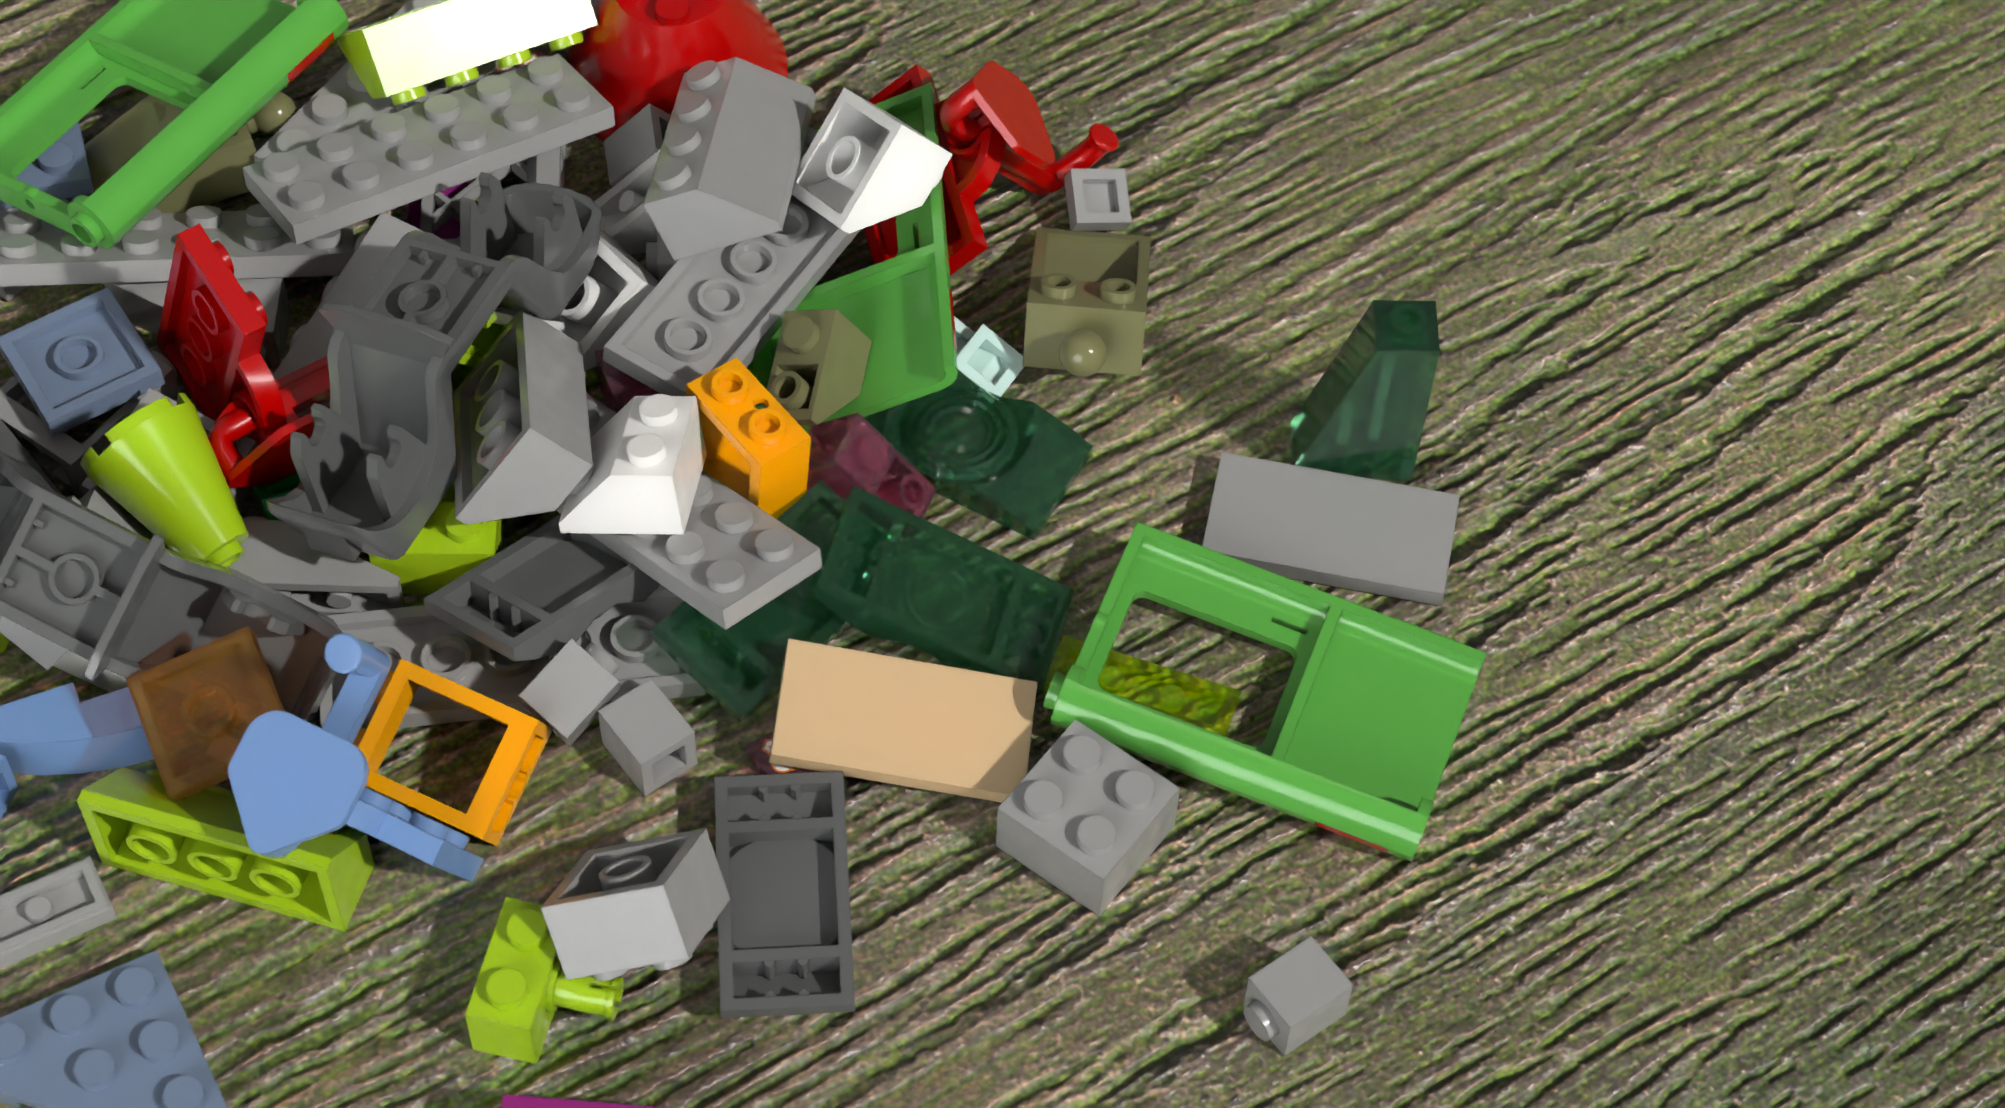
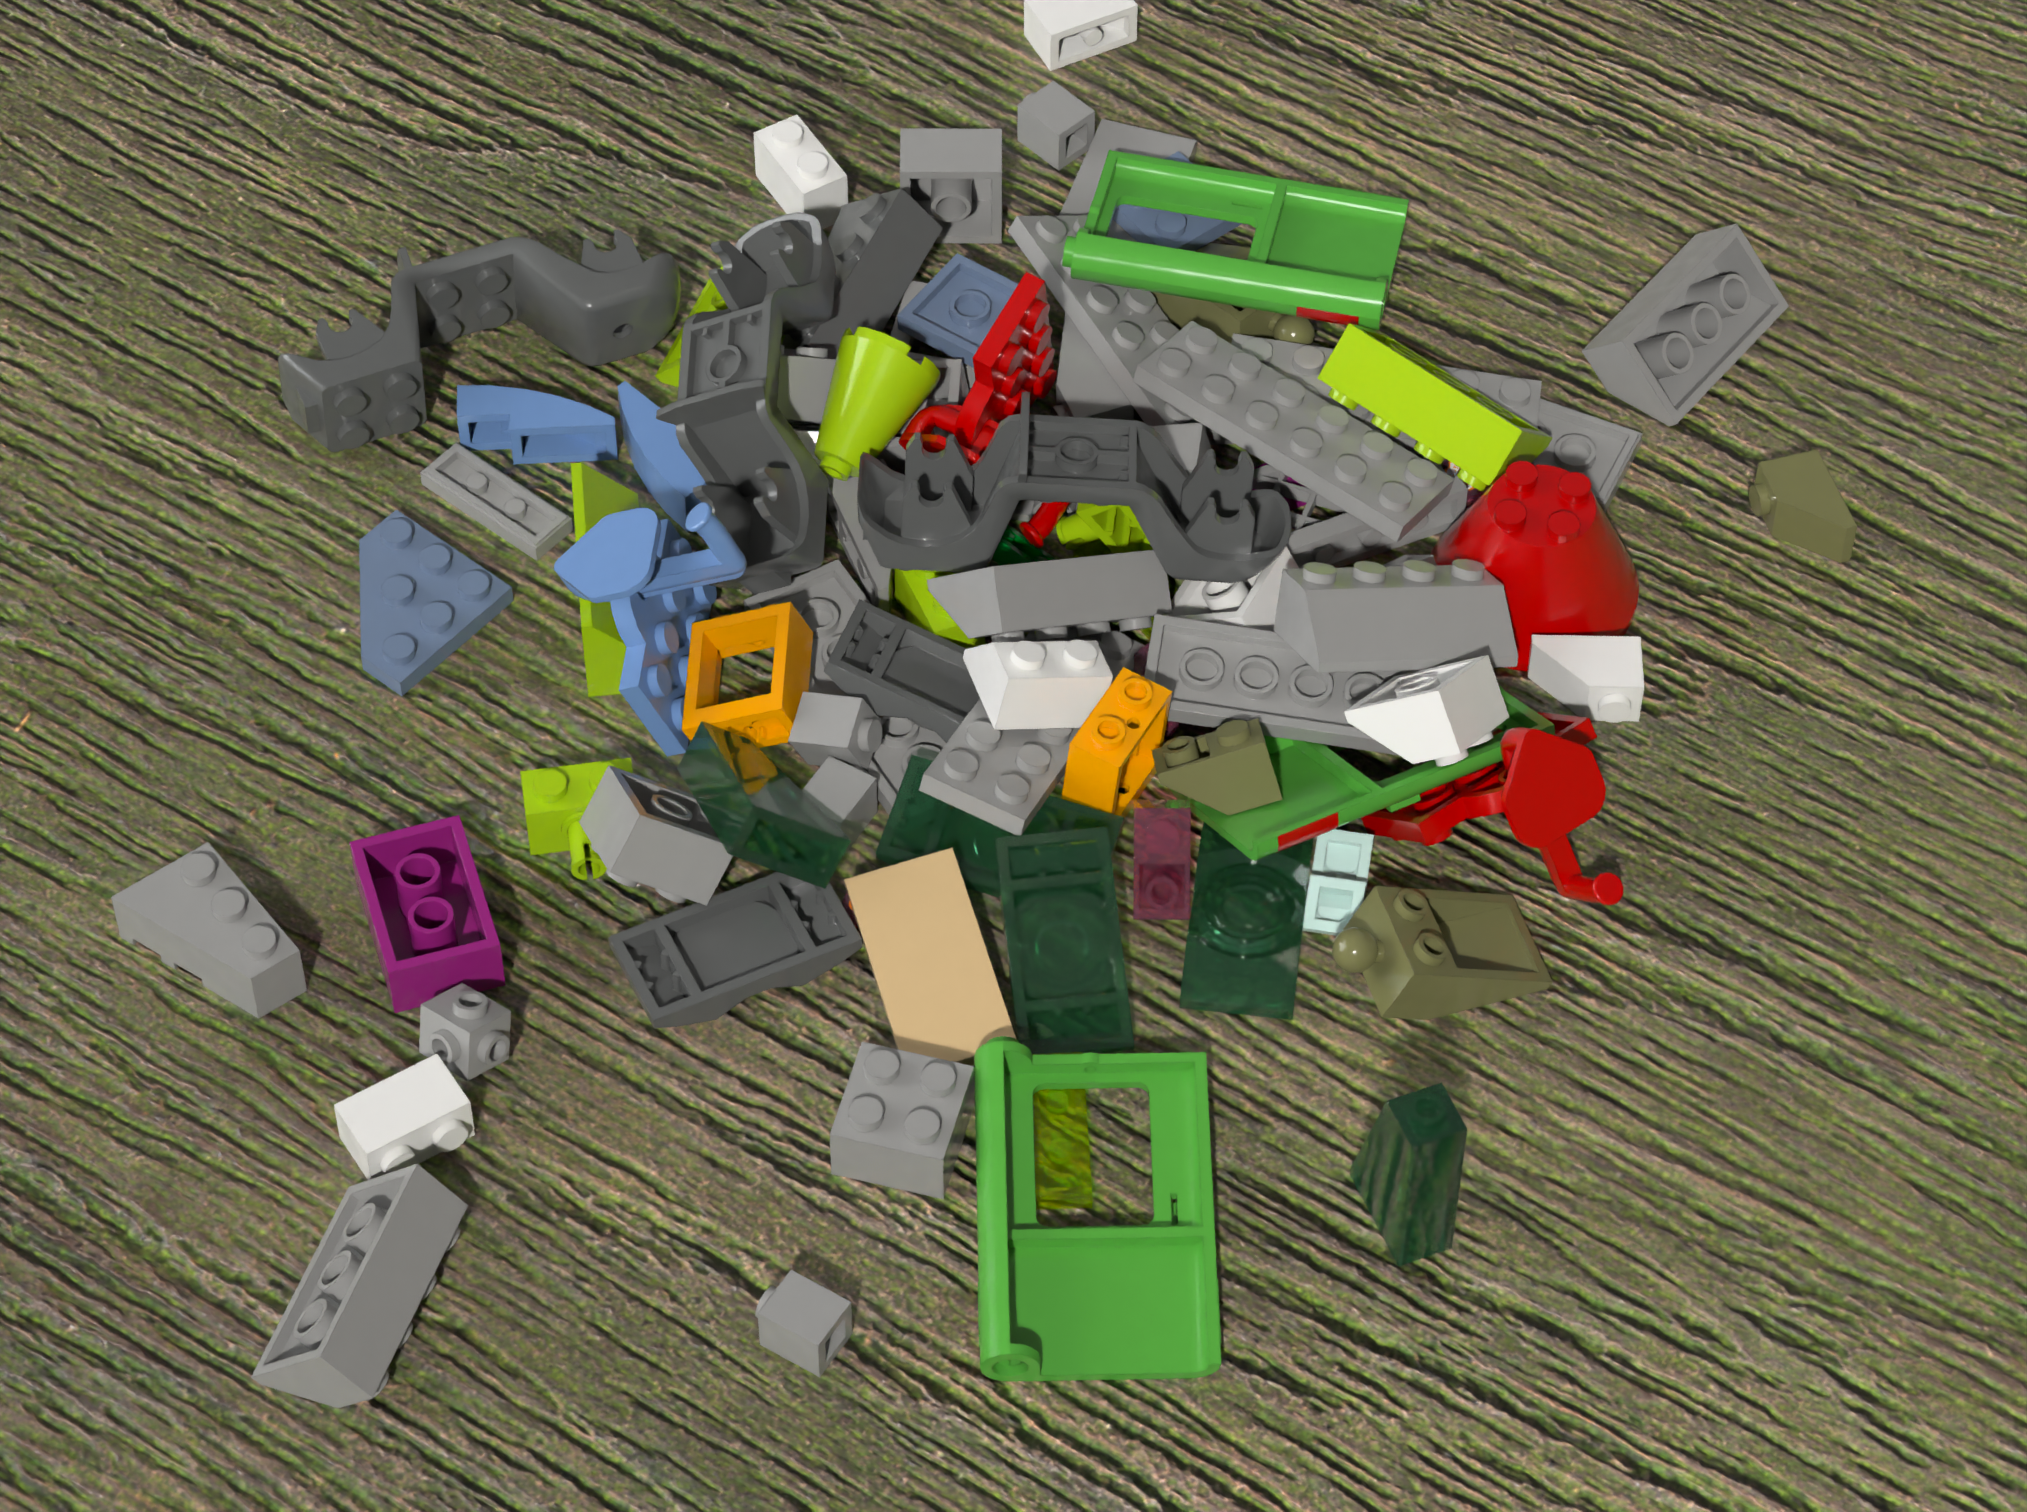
camera: 70 degrees right, 5 degrees down
(201, 708) = (672, 489): clear orange tile -> none
(637, 798) = (759, 808): none -> clear green slope
(832, 53) = (1590, 674): none -> white slope
(1097, 199) = (1559, 922): light grey plate -> none
(1333, 527) = (1303, 1215): light grey tile -> none

